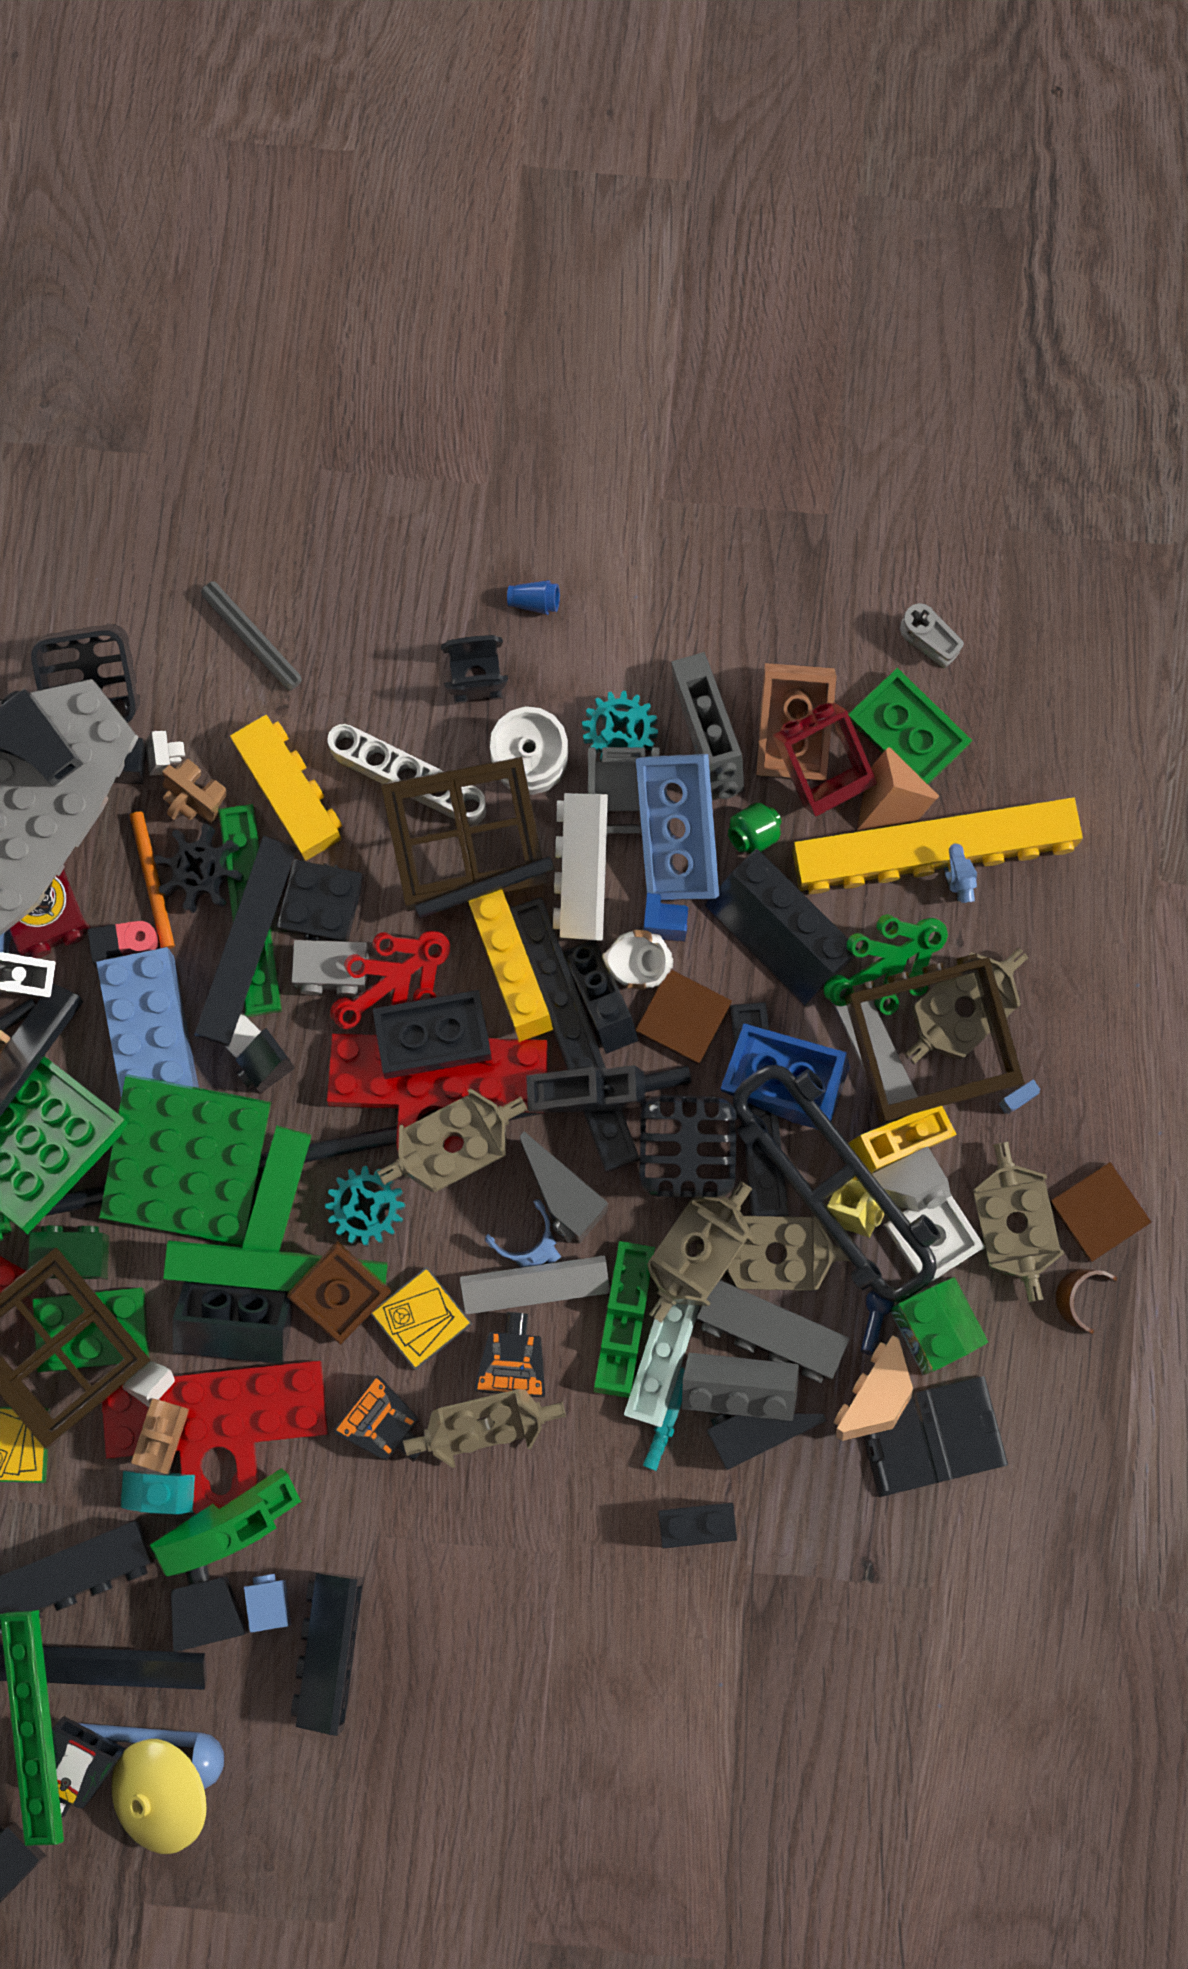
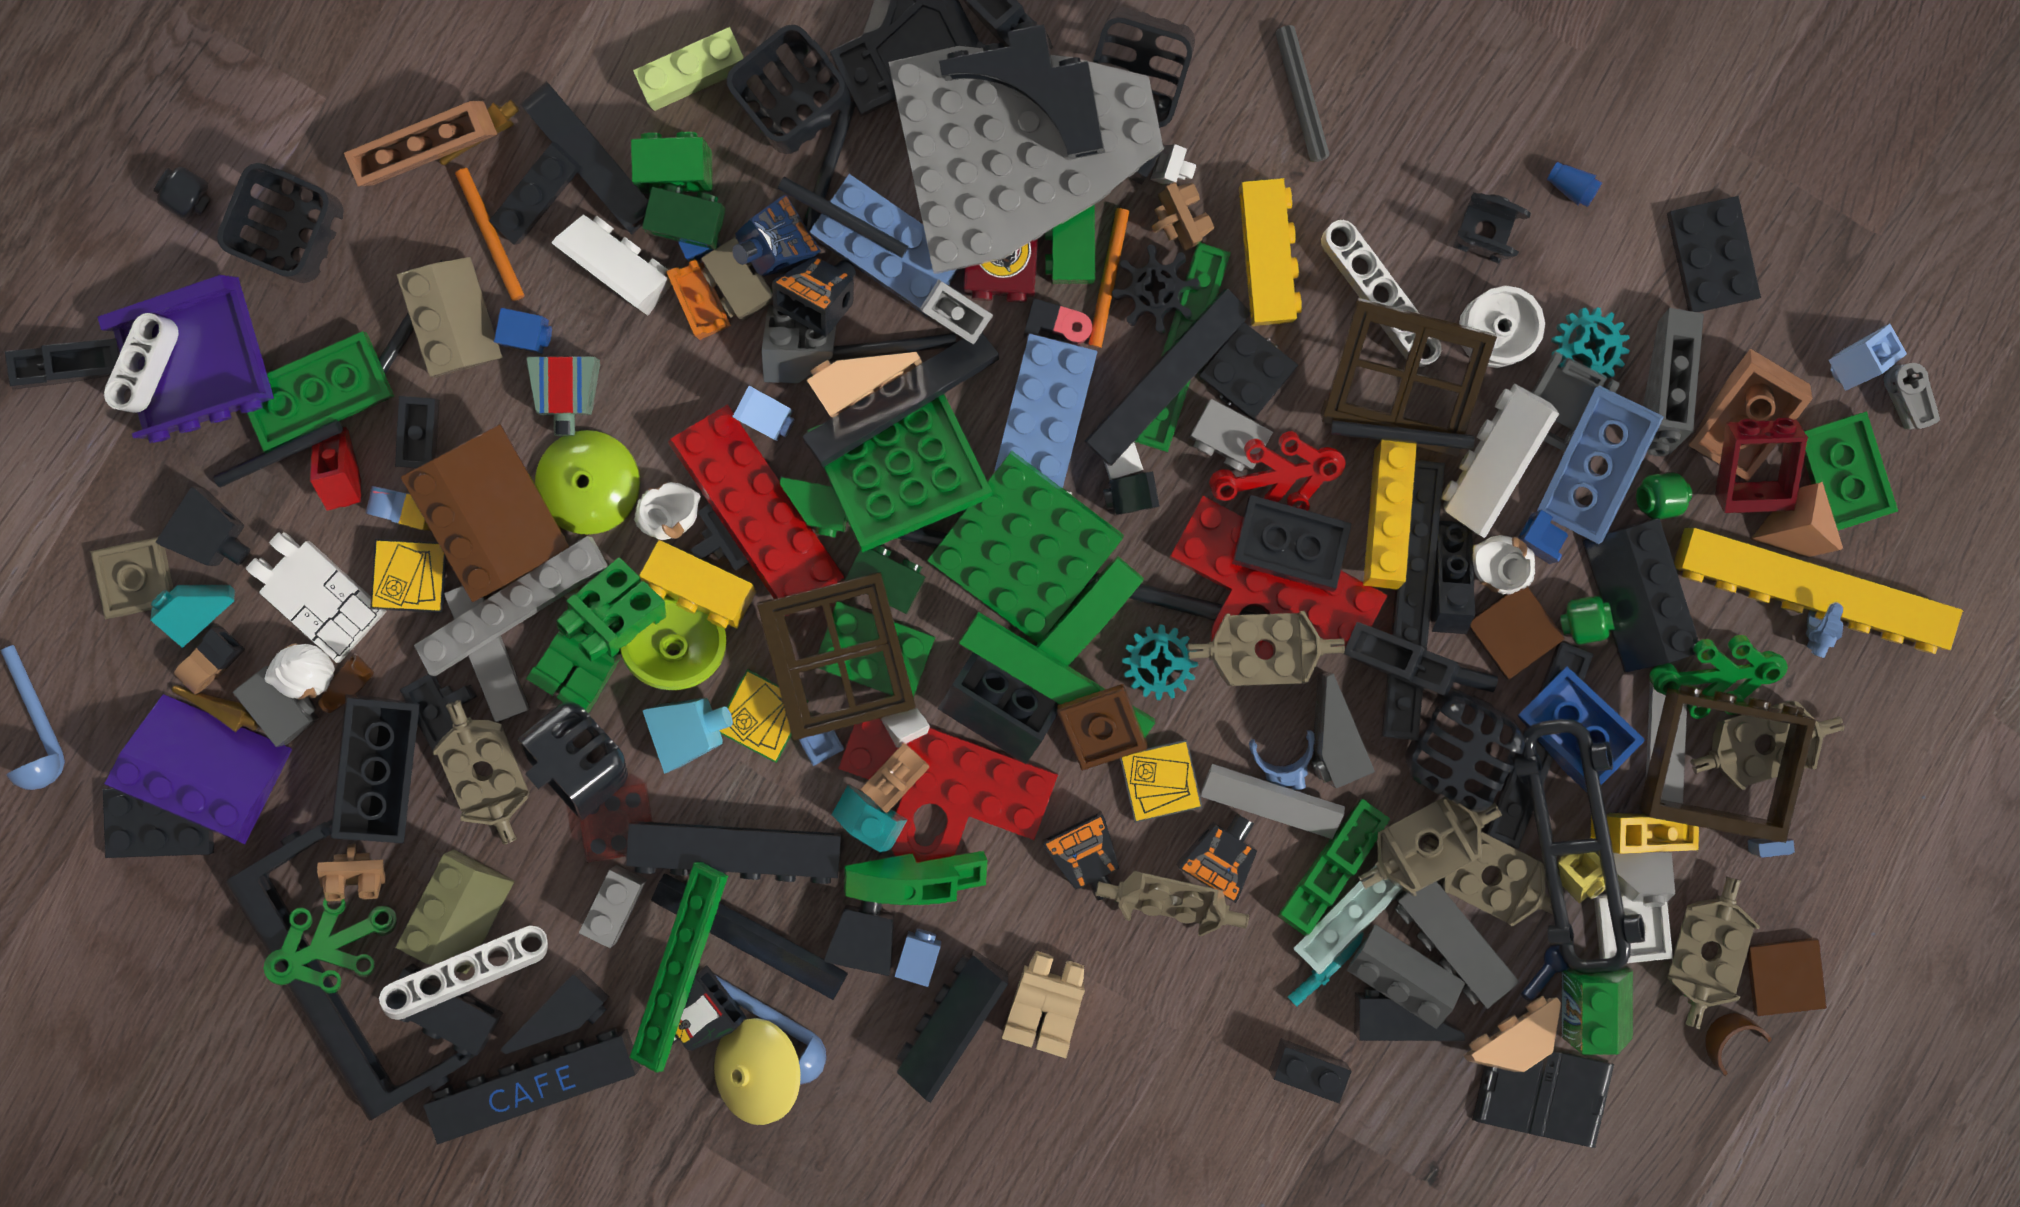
camera: 25 degrees right, 10 degrees up
(79, 1443) = (822, 746): none -> medium blue tile
(103, 867) = (1073, 250): none -> green brick
(411, 1577) = (1047, 993): none -> tan hips
(691, 599) = (1713, 255): none -> black plate
(743, 973) = (1587, 620): none -> green head
(873, 621) = (1867, 358): none -> light blue slope

